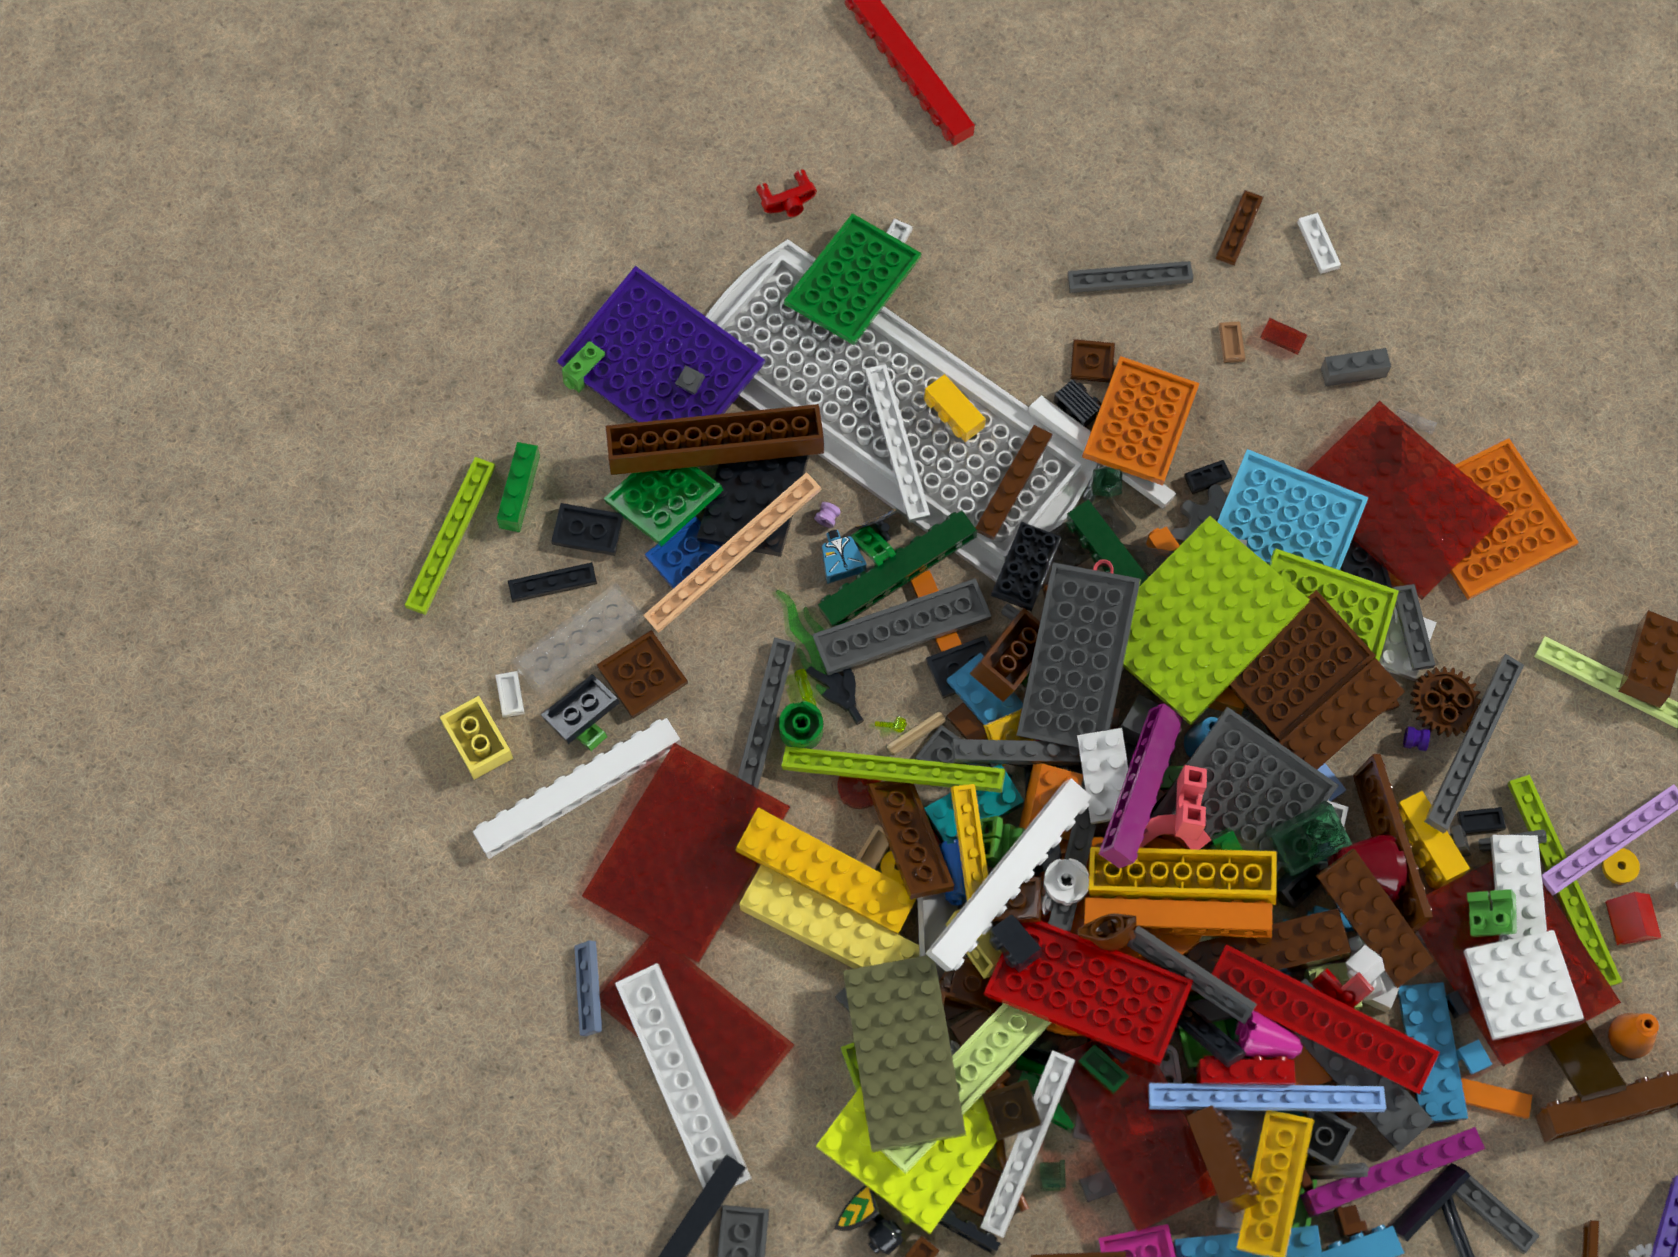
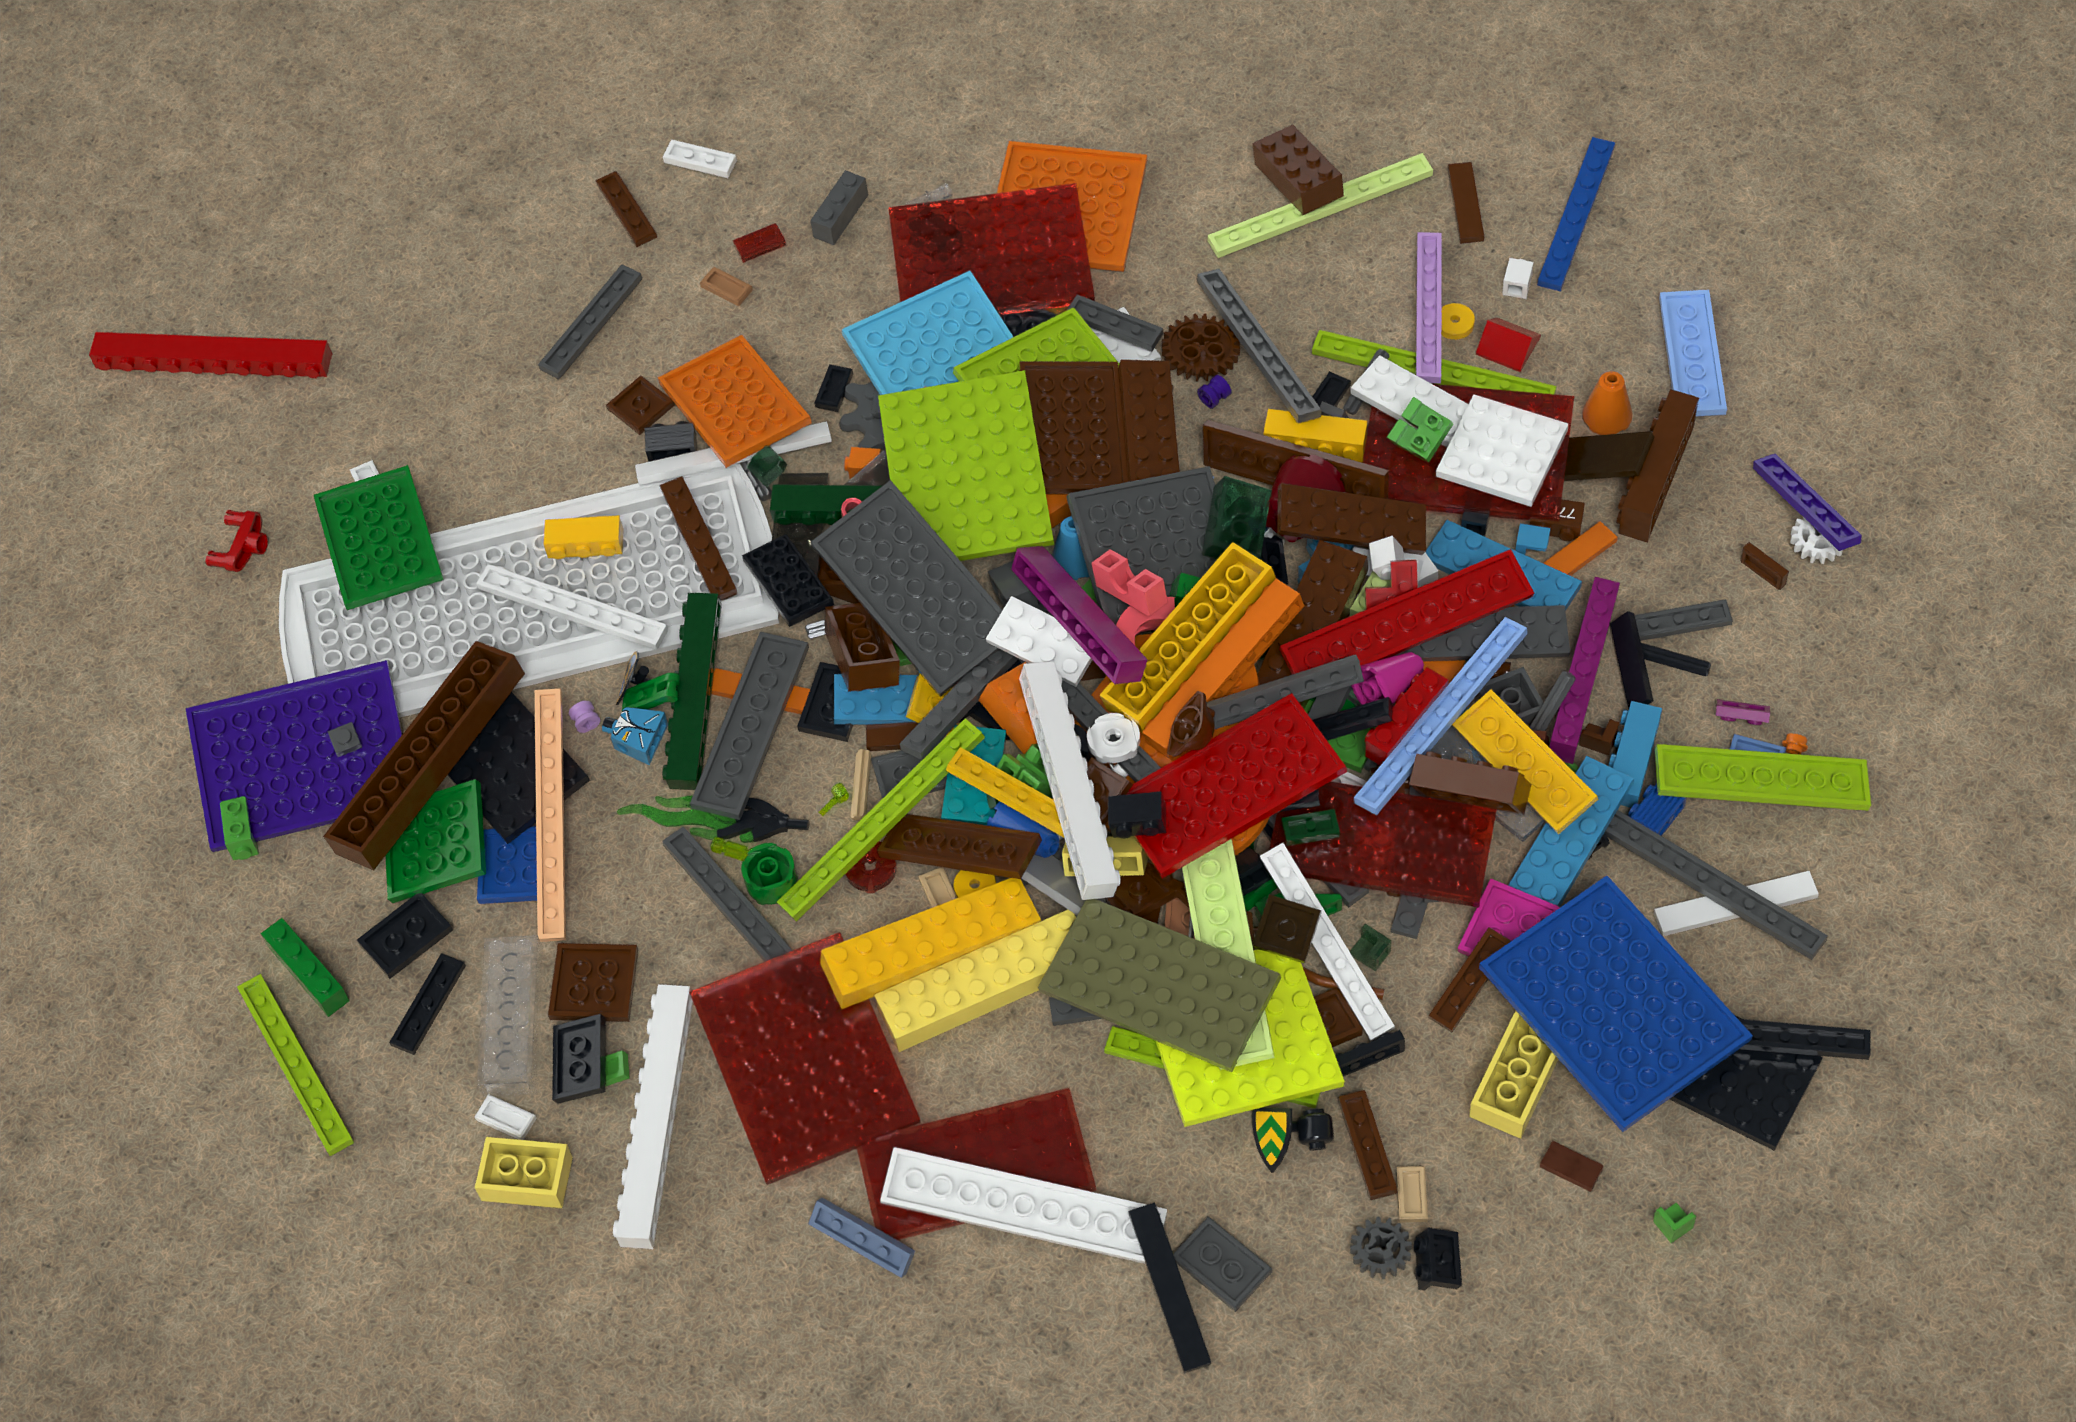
camera: 45 degrees left, 10 degrees down
(1511, 1074) = (1569, 523): none -> reddish brown brick

